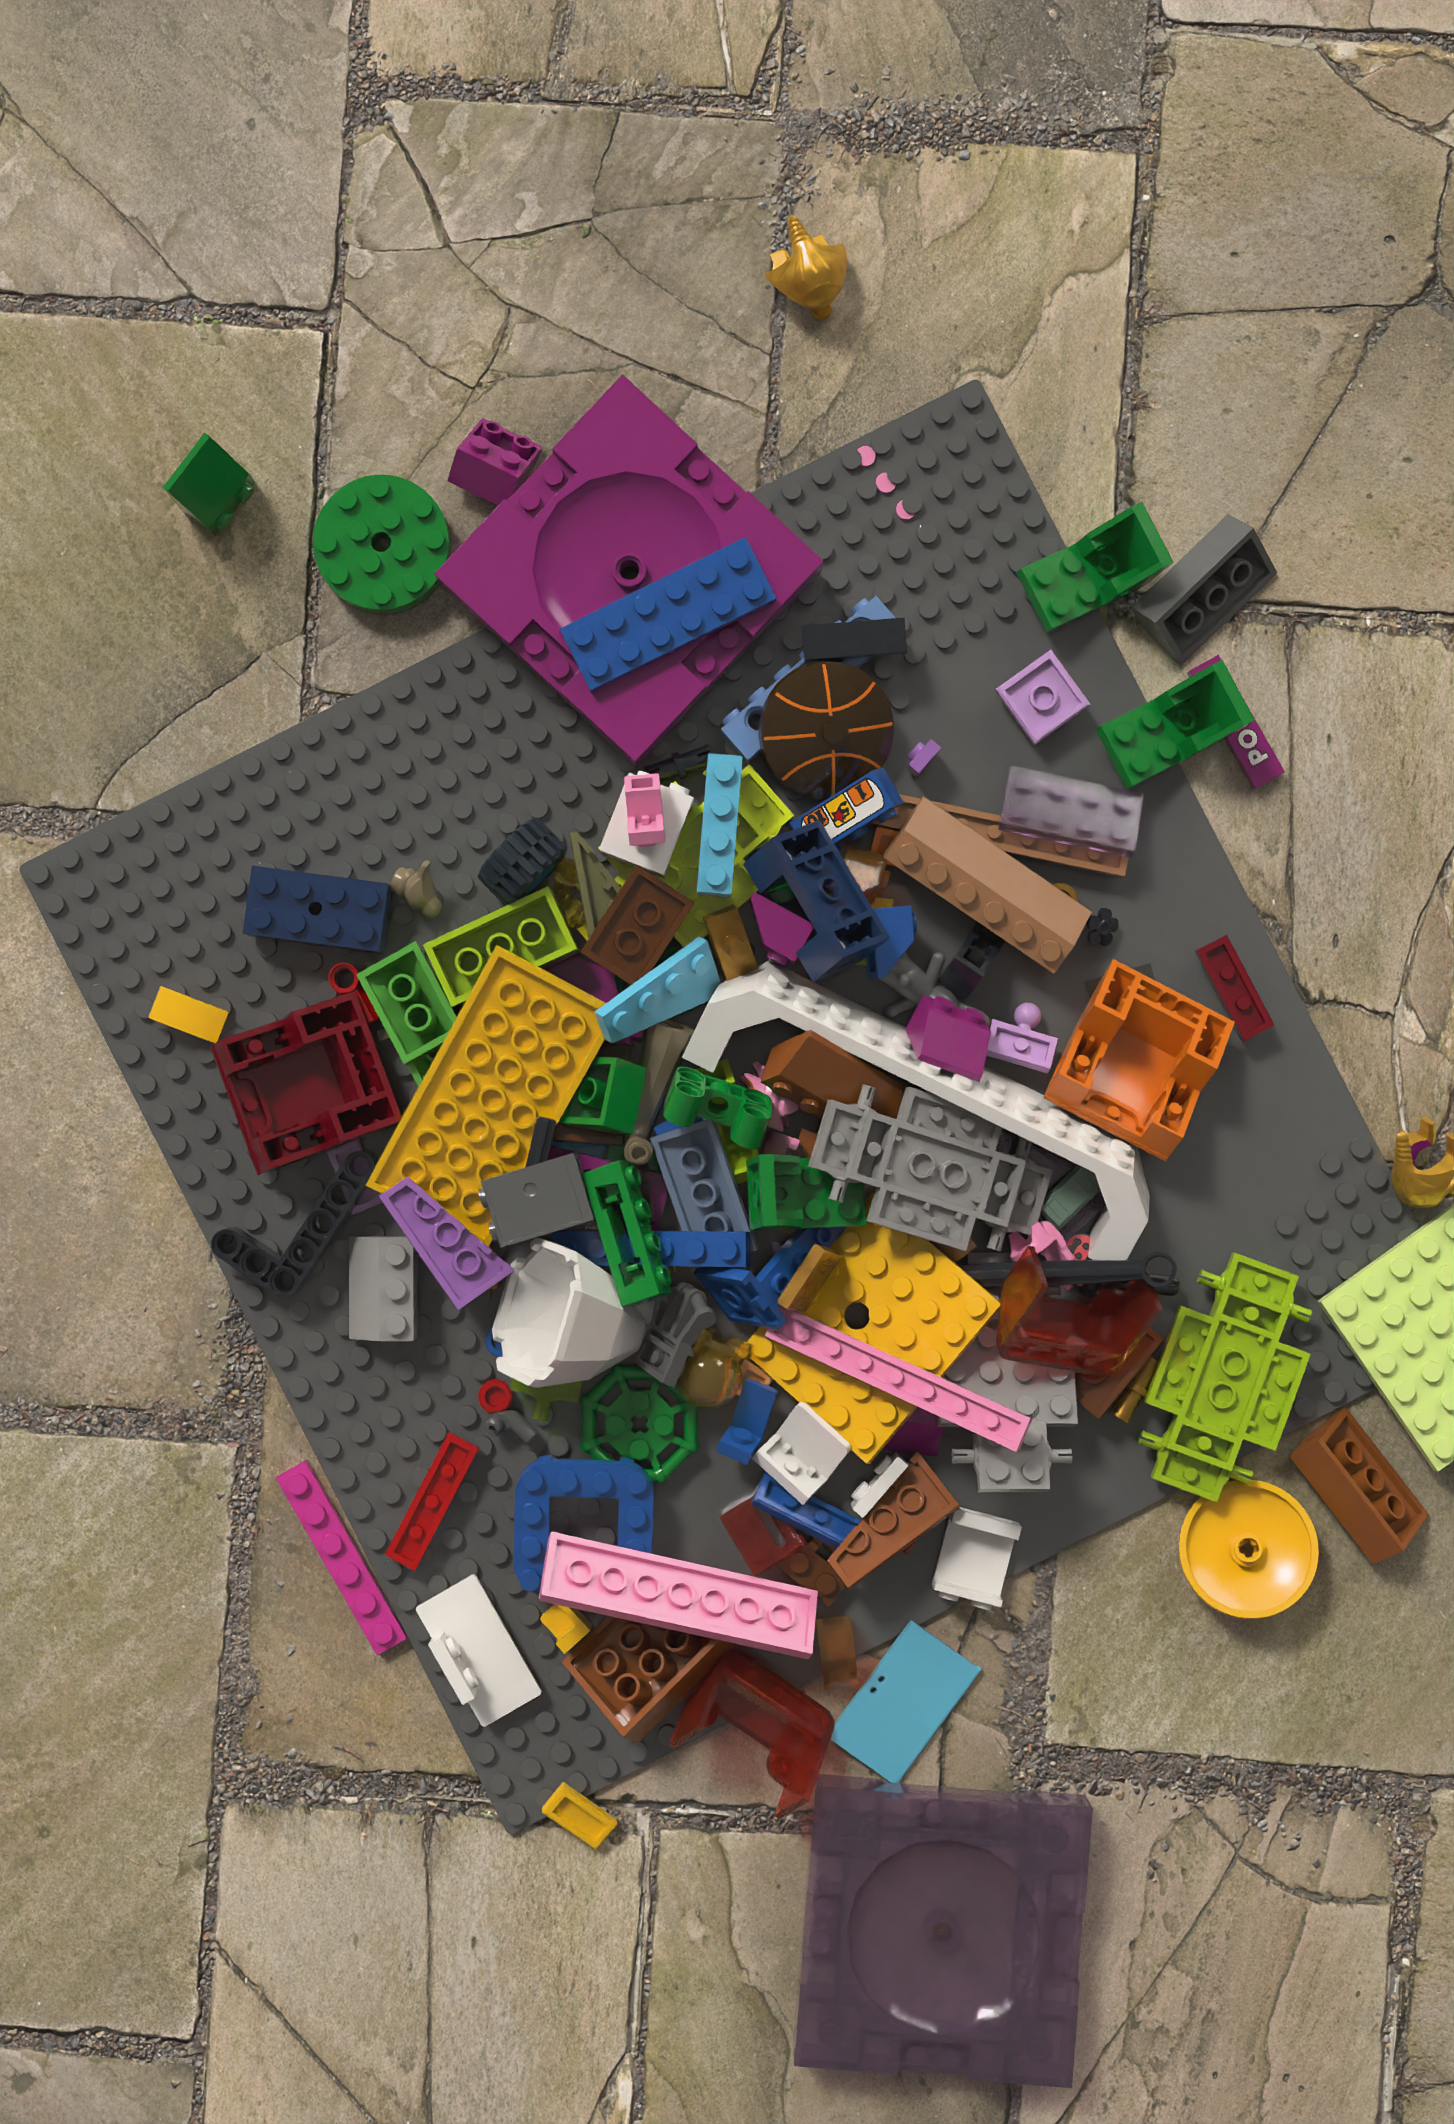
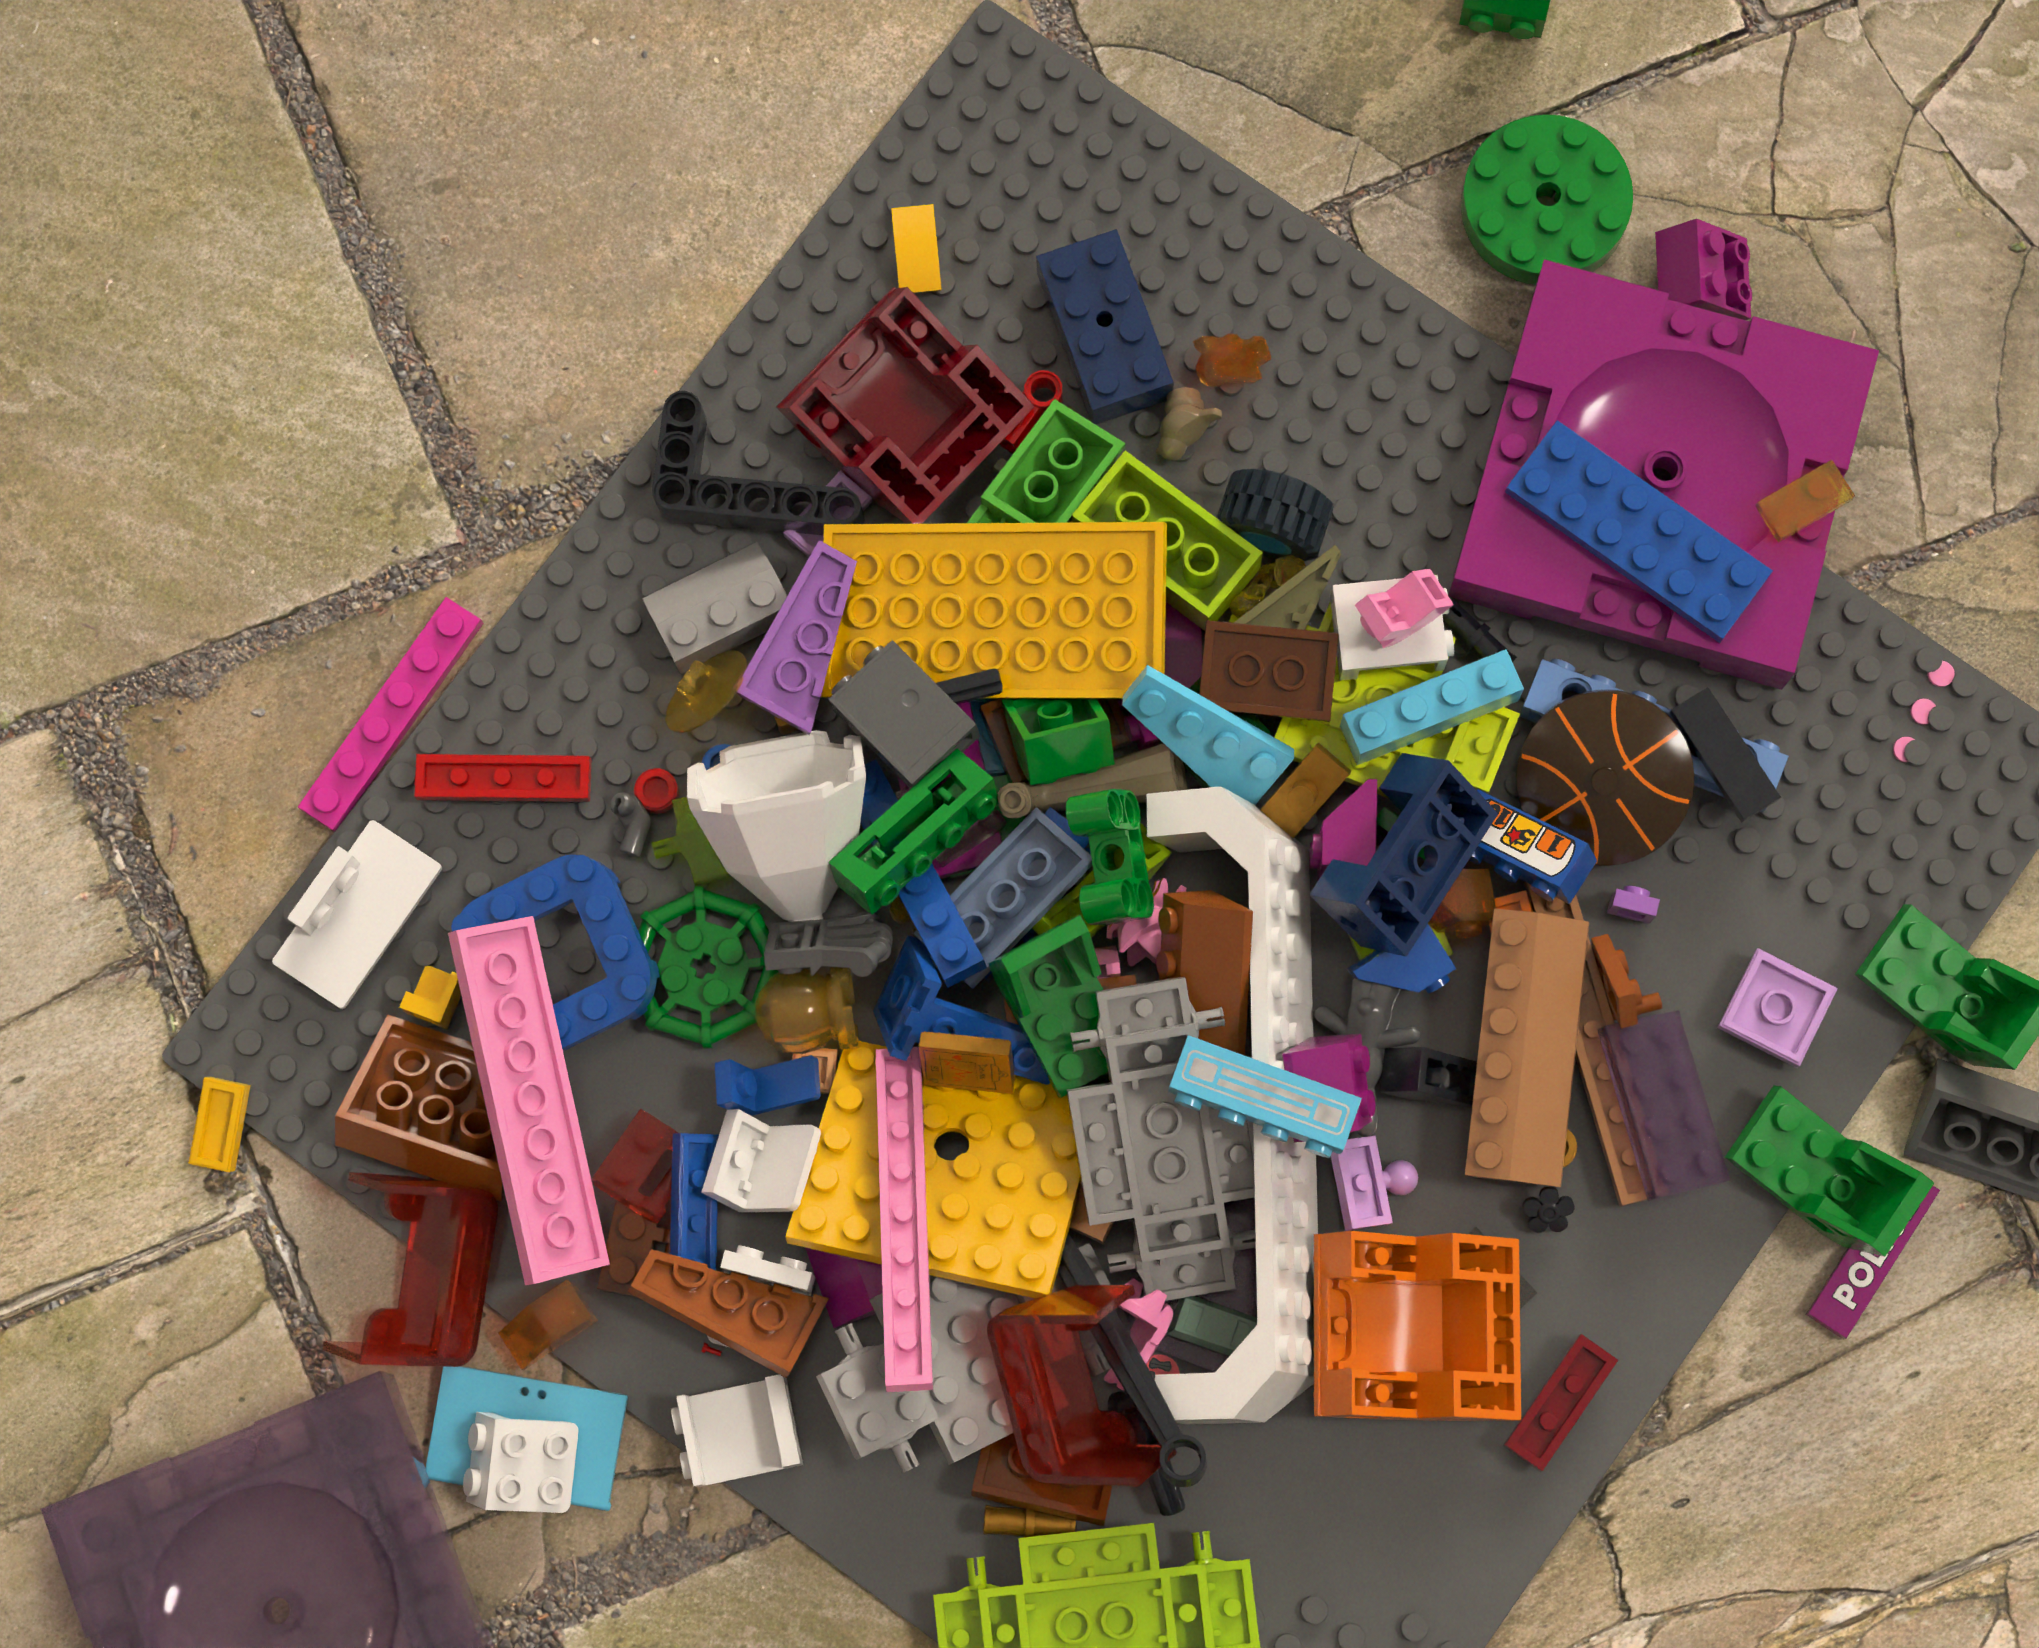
camera: 70 degrees right, 10 degrees down
(389, 832) = (1230, 359): none -> clear orange hips
(444, 1328) = (705, 690): none -> clear yellow shield
(706, 486) = (1805, 501): none -> clear yellow tile
(923, 1717) = (520, 1464): none -> white bracket
(944, 1089) = (1264, 1096): none -> medium azure brick
(984, 800) = (1622, 994): none -> dark orange plate

